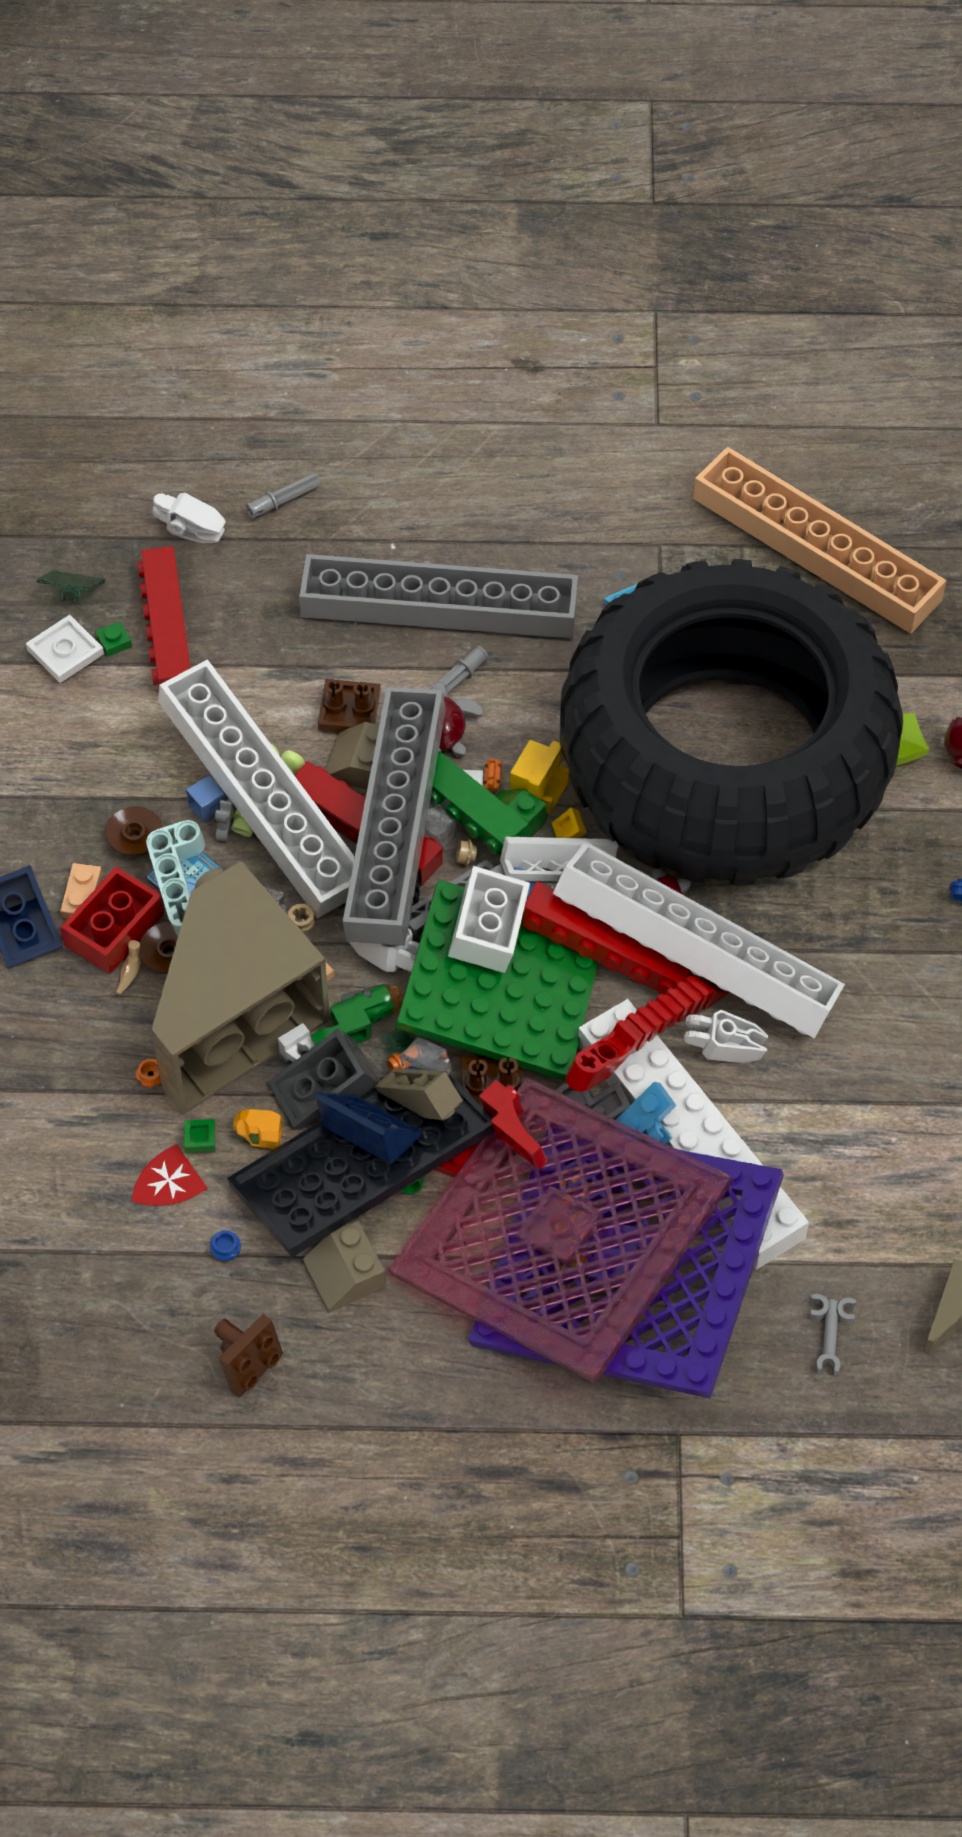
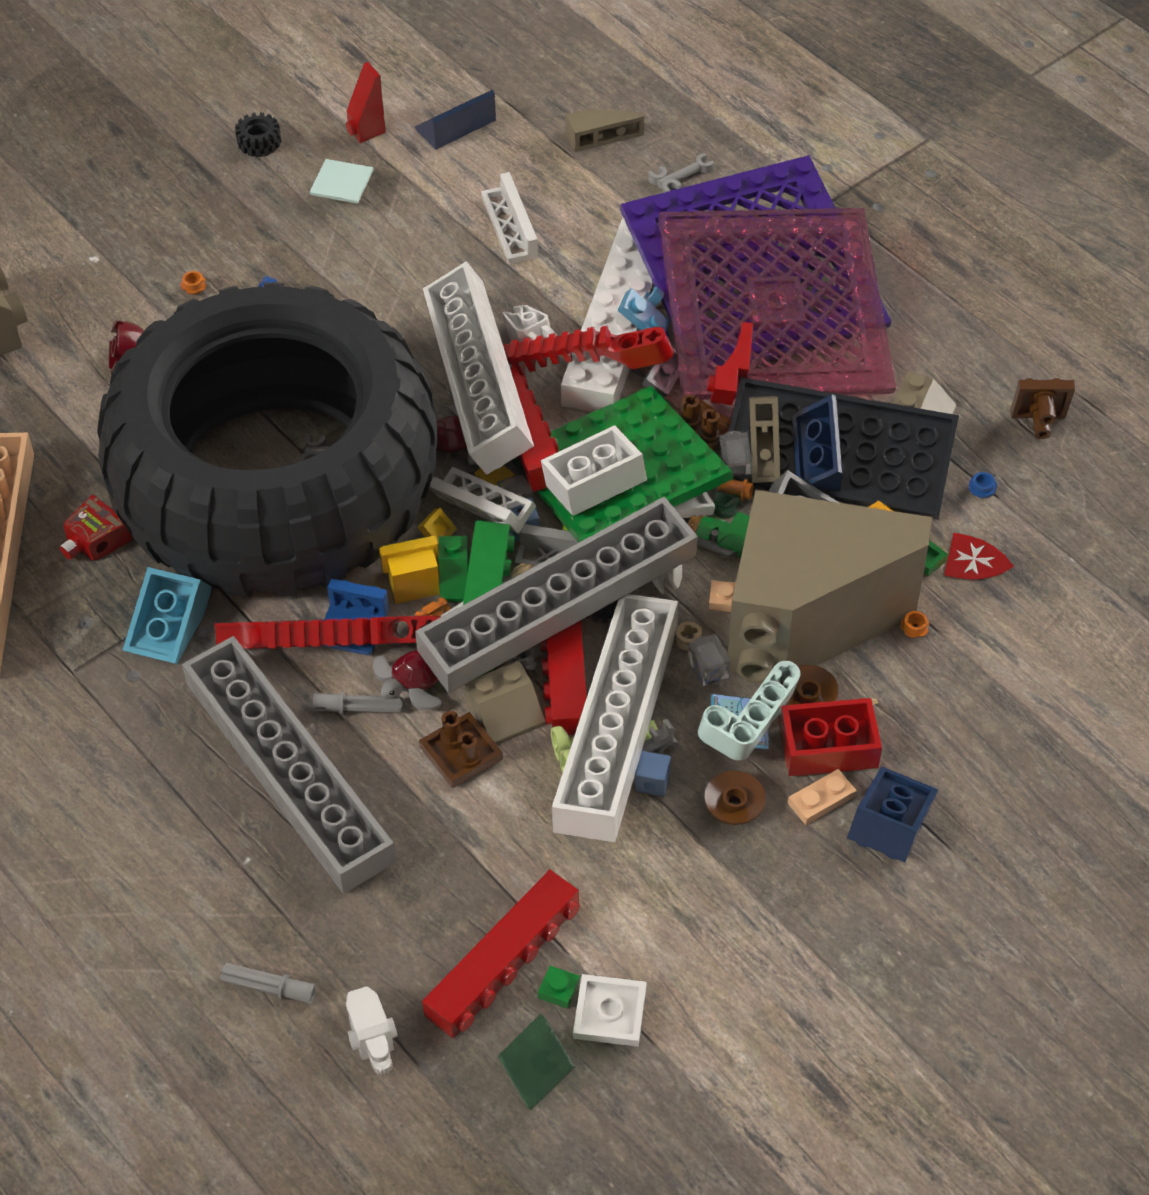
camera: 130 degrees left, 5 degrees down
(487, 736) = (320, 633): none -> red piece
(529, 718) = (355, 601): none -> blue bracket
(890, 1142) = (516, 222): none -> white fence

